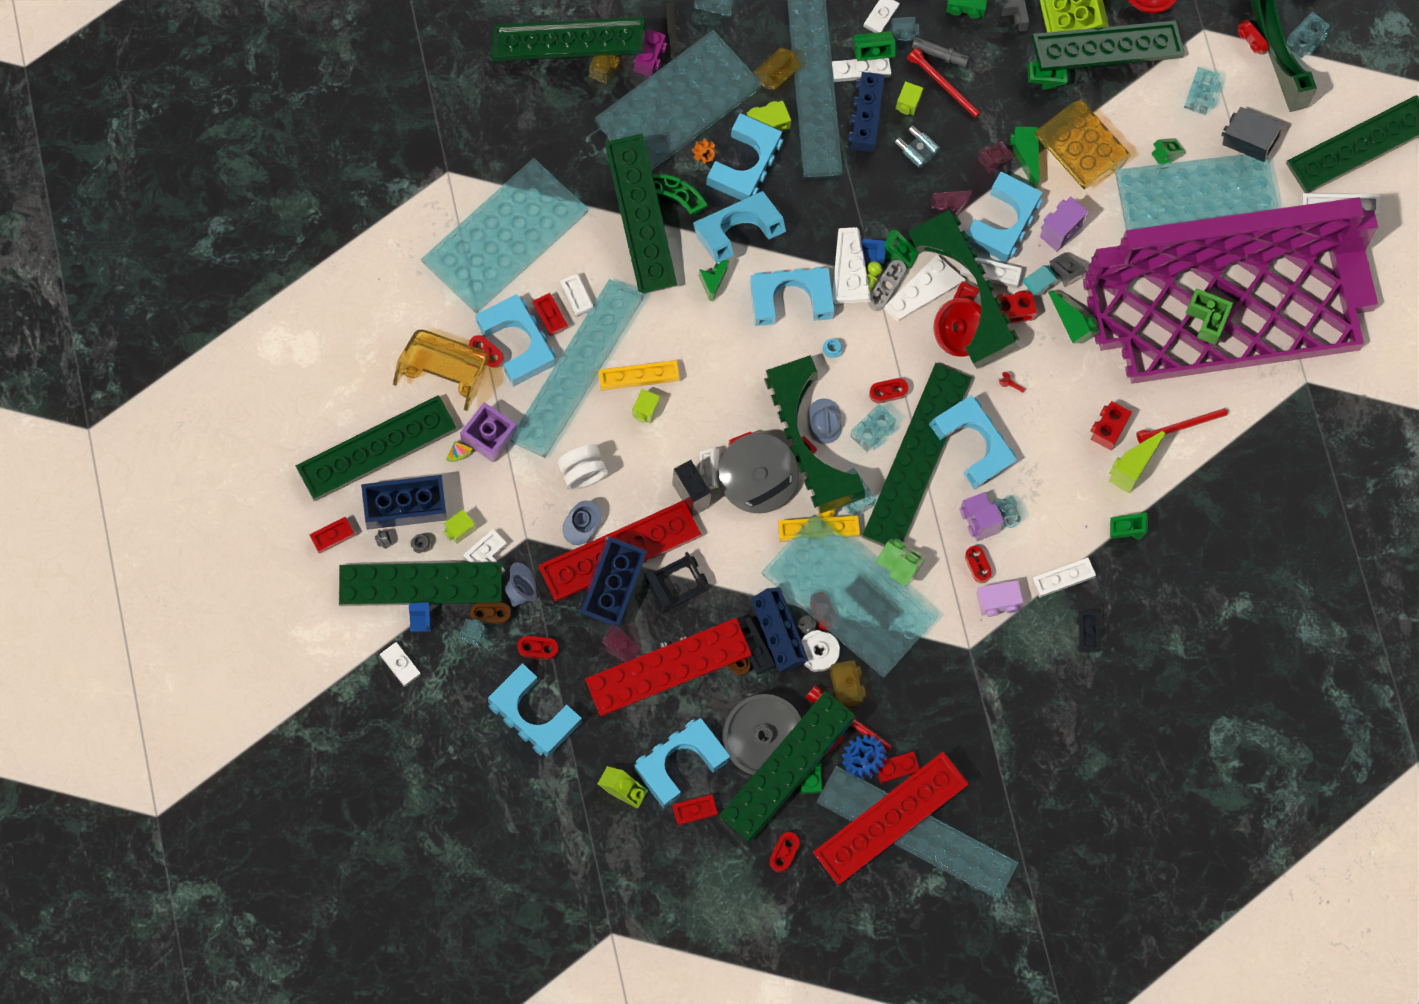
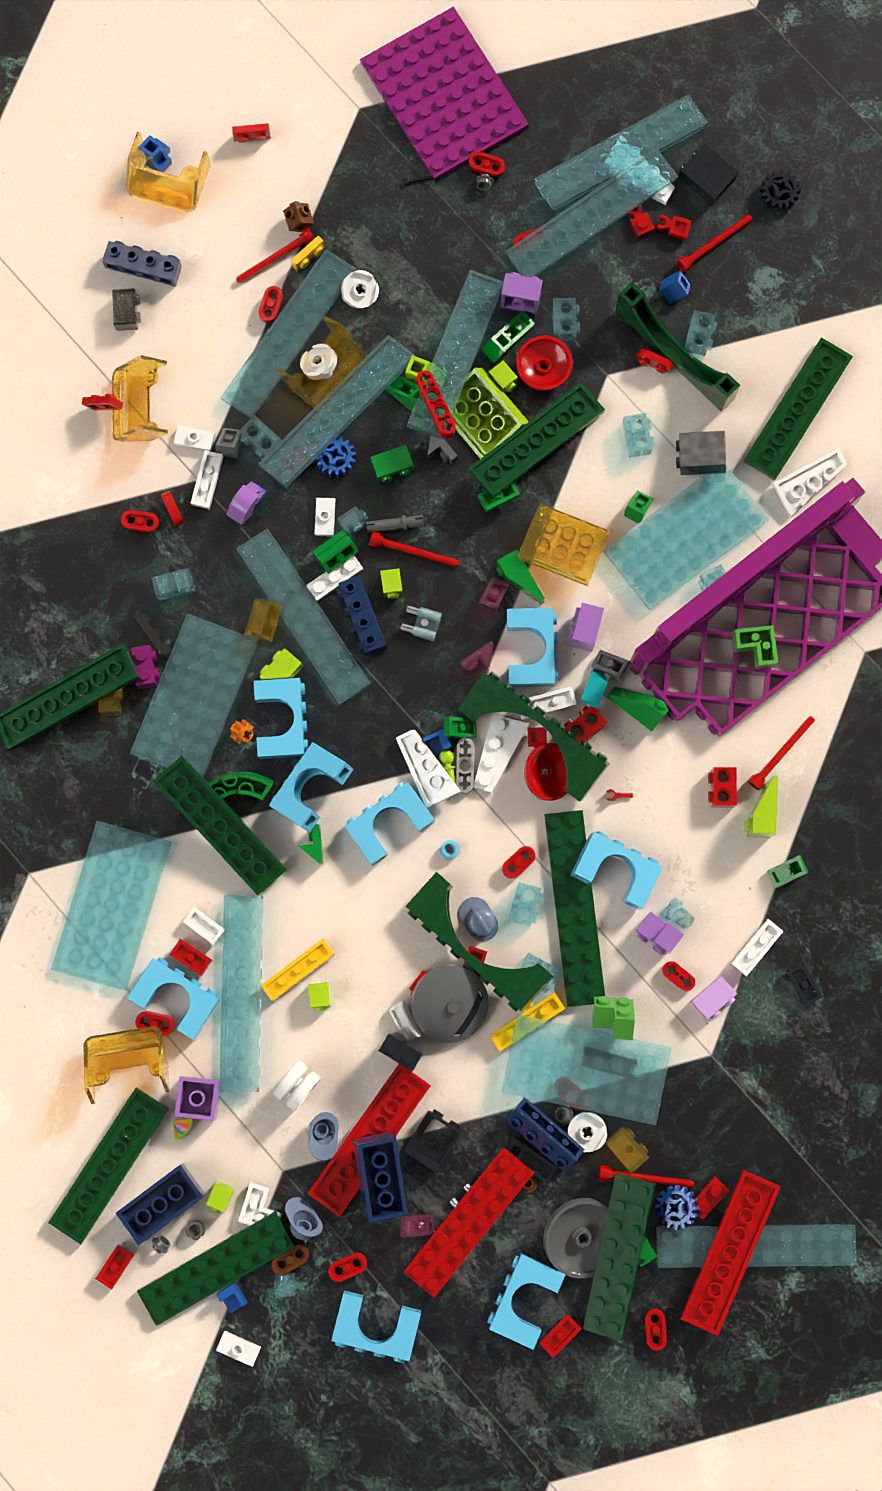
camera: 20 degrees left, 10 degrees up
(622, 786) = (488, 1351): lime slope -> none

